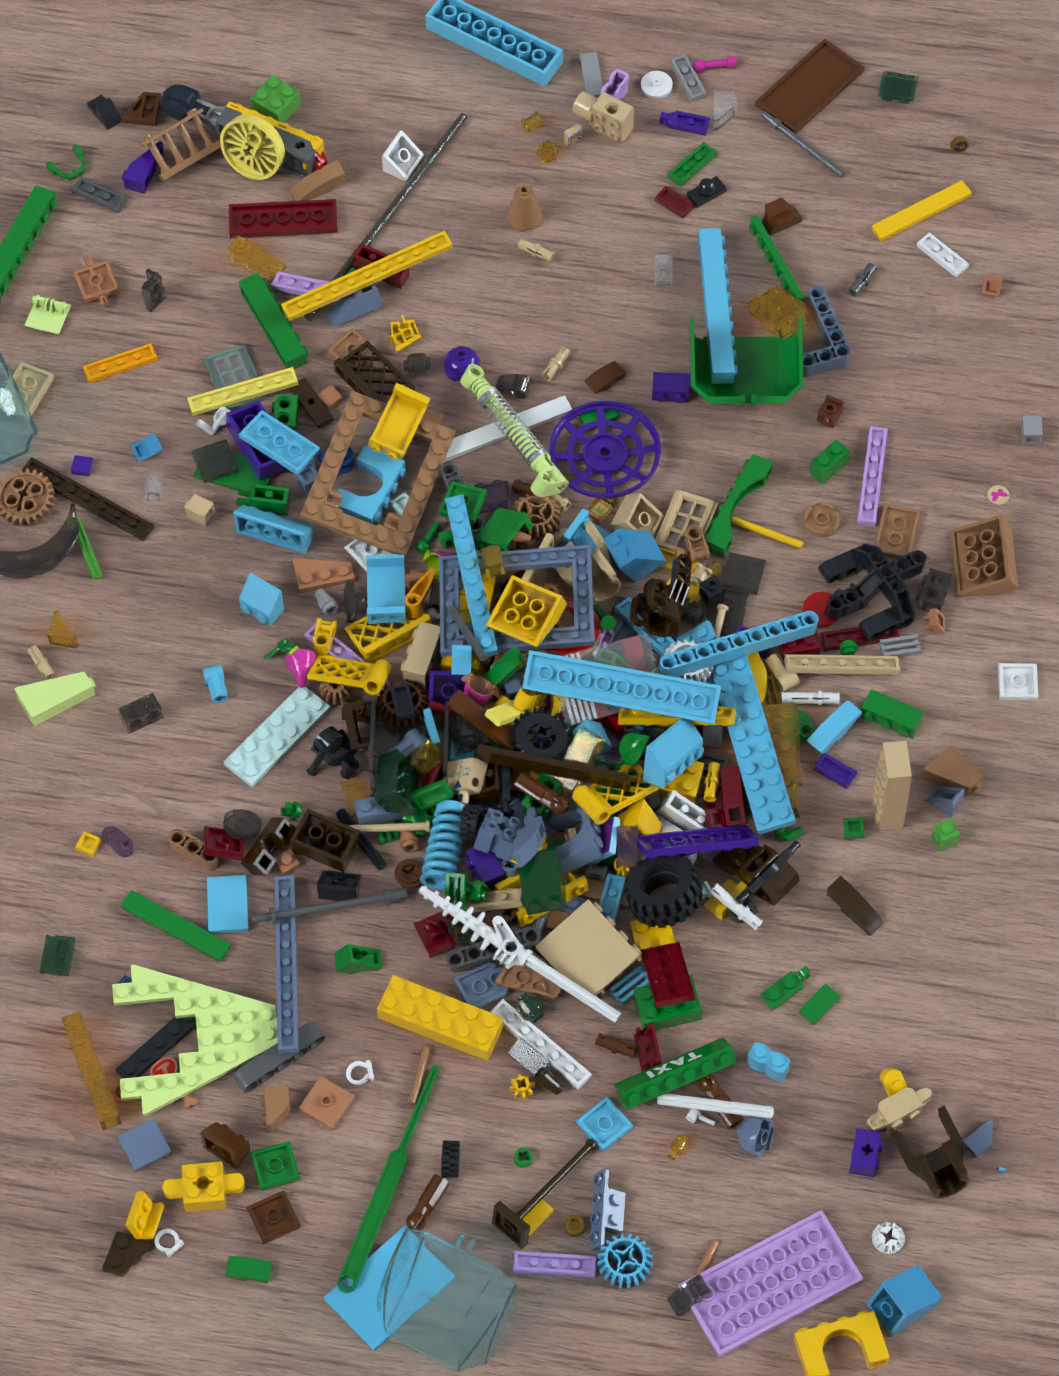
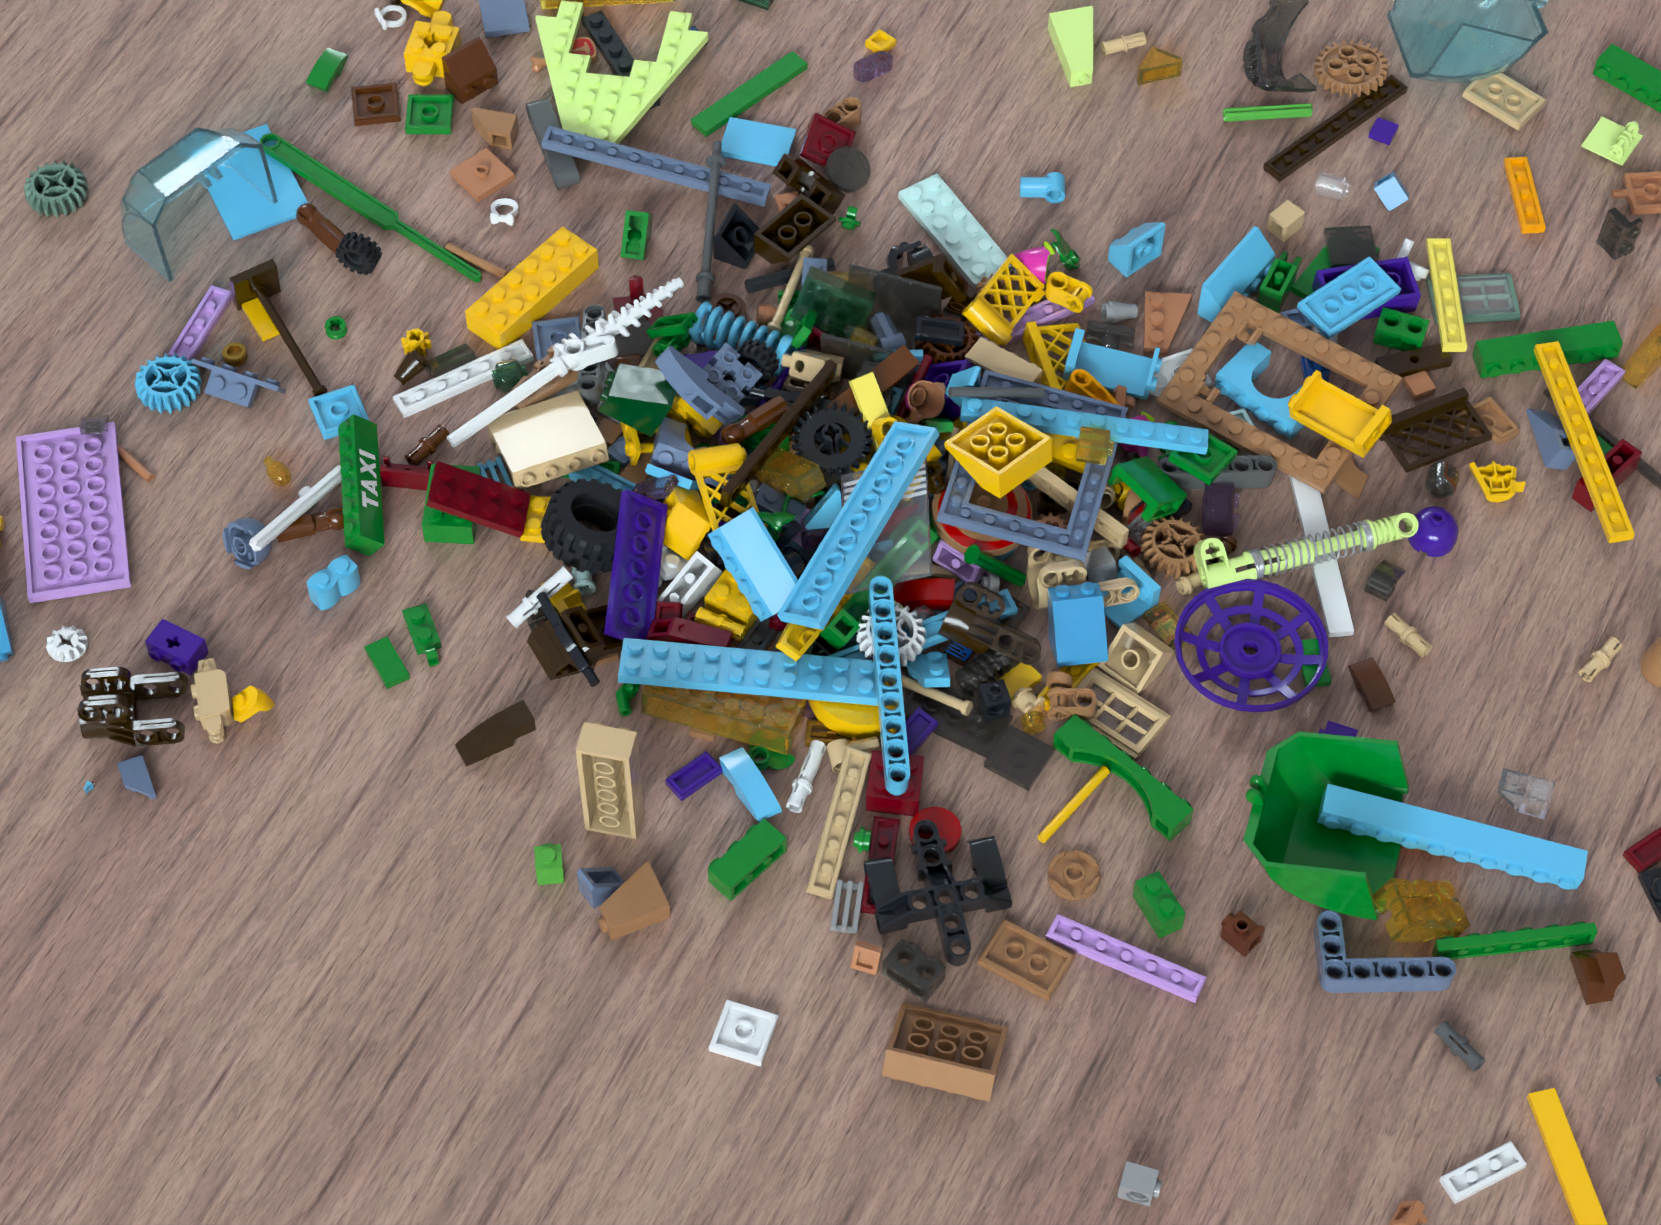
camera: 105 degrees right, 5 degrees down
(140, 713) = (1025, 111): clear smoke brick -> none
(998, 494) = (1048, 1111): tan sticker -> none

